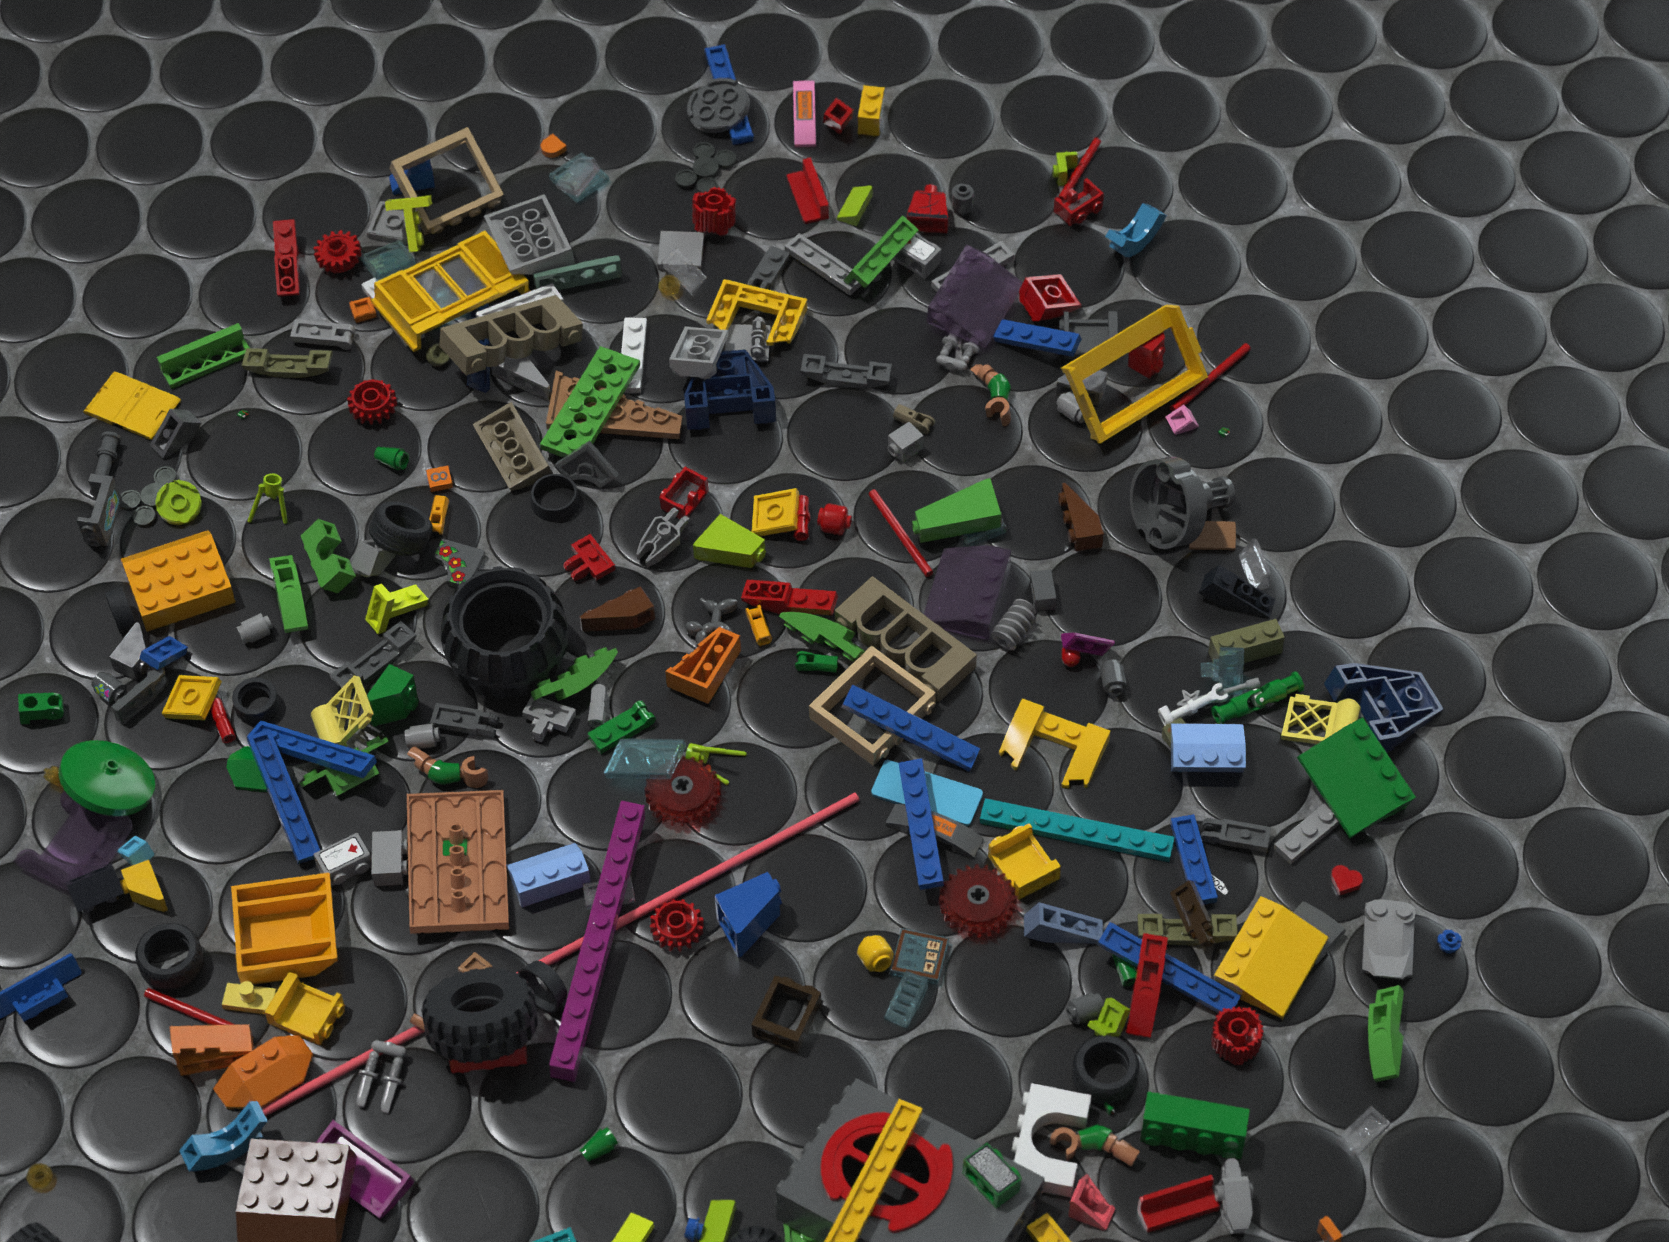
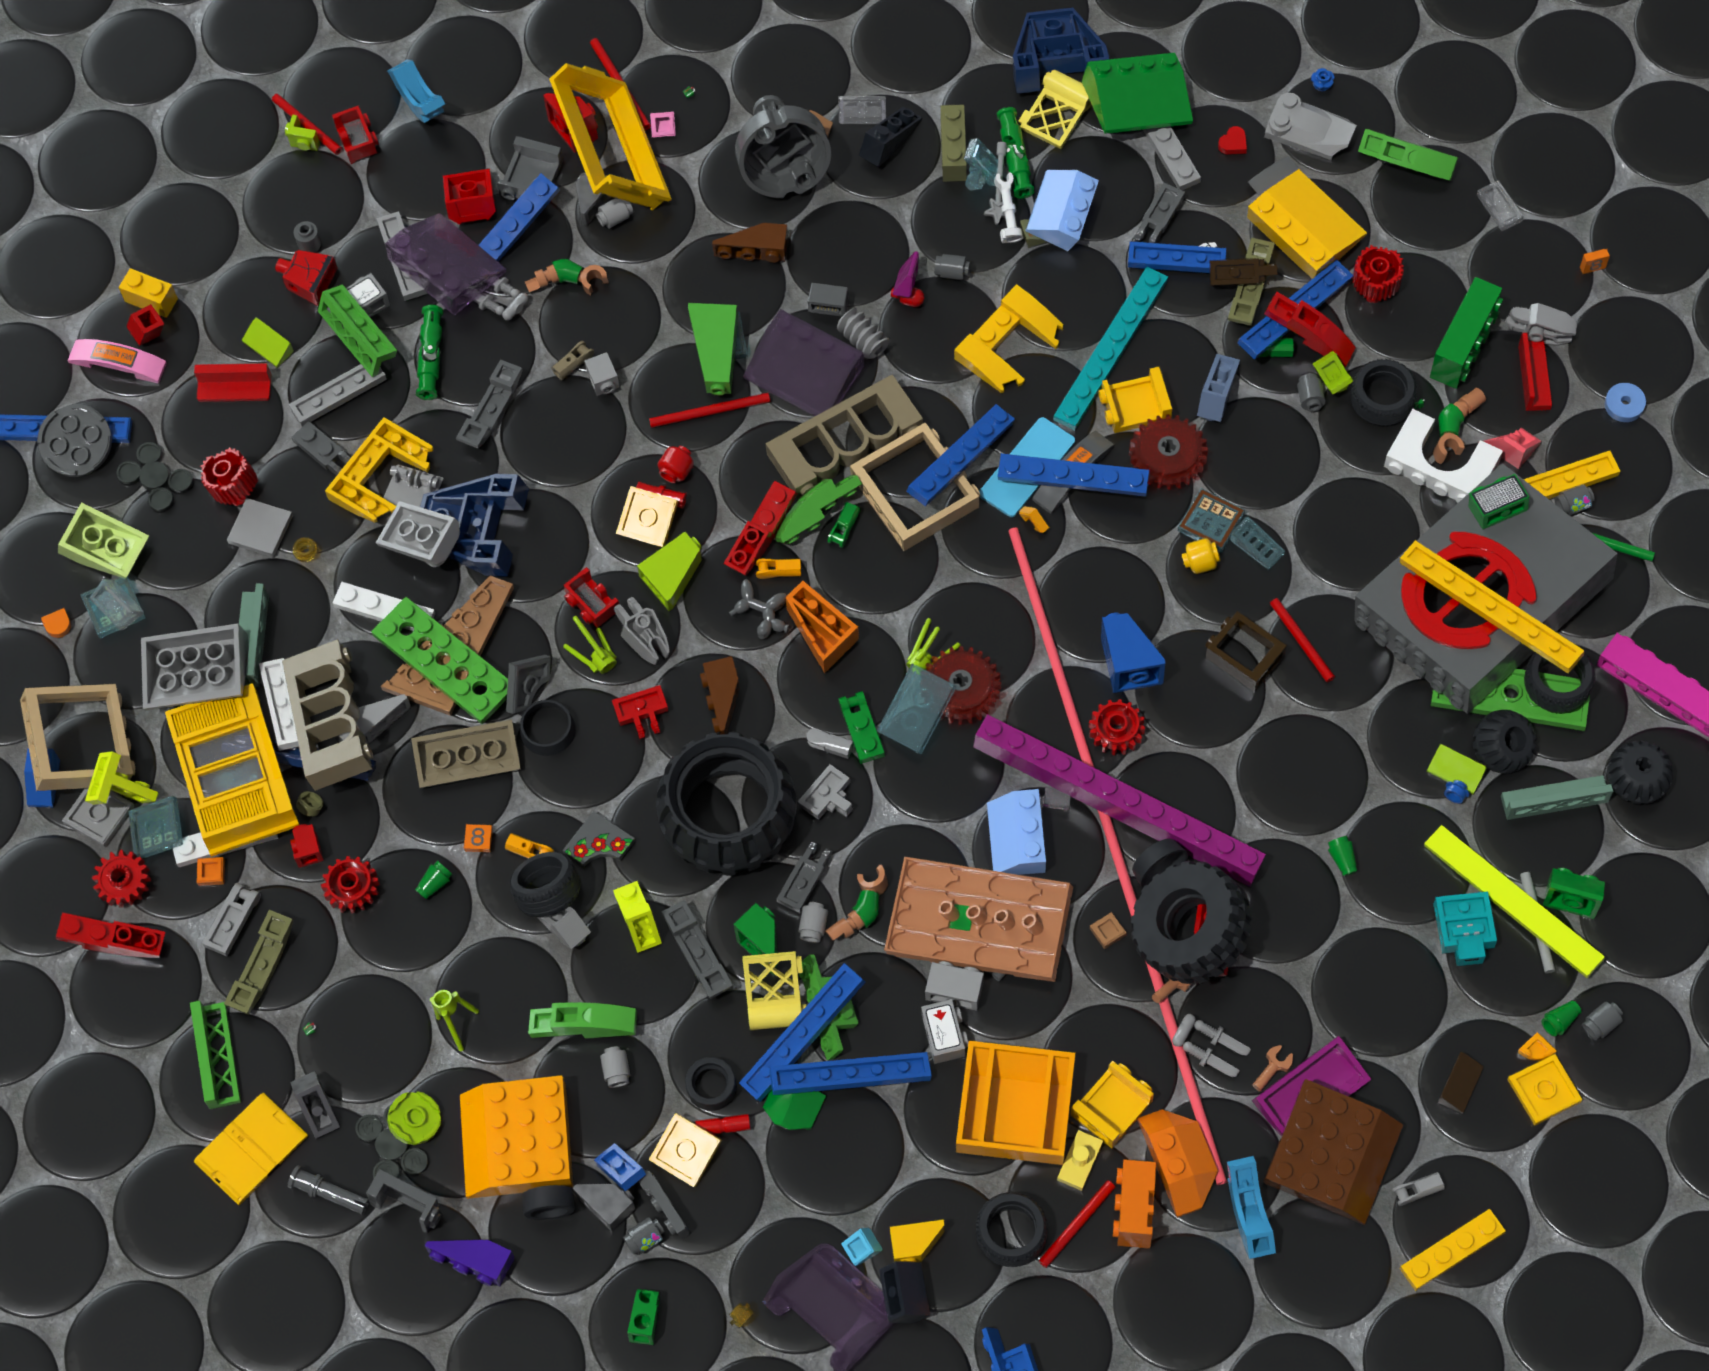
camera: 70 degrees left, 10 degrees up
(65, 583) = (480, 1257): none -> dark purple slope
(106, 778) = (772, 1252): green dish -> none
(331, 570) = (528, 976): bright green arch -> none
(375, 1135) = (1273, 1067): none -> nougat bar
(399, 363) = (306, 845): none -> red brick
(578, 676) = (794, 749): bright green slope -> none
(629, 147) = (101, 542): none -> yellowish green slope
(629, 516) = (602, 659): none -> lime plant
(684, 270) = (294, 527): clear plate -> none
(812, 1066) = (1302, 640): none -> red piece
(871, 808) = (1034, 516): none -> light orange tile
(894, 313) = (430, 338): none -> green piece

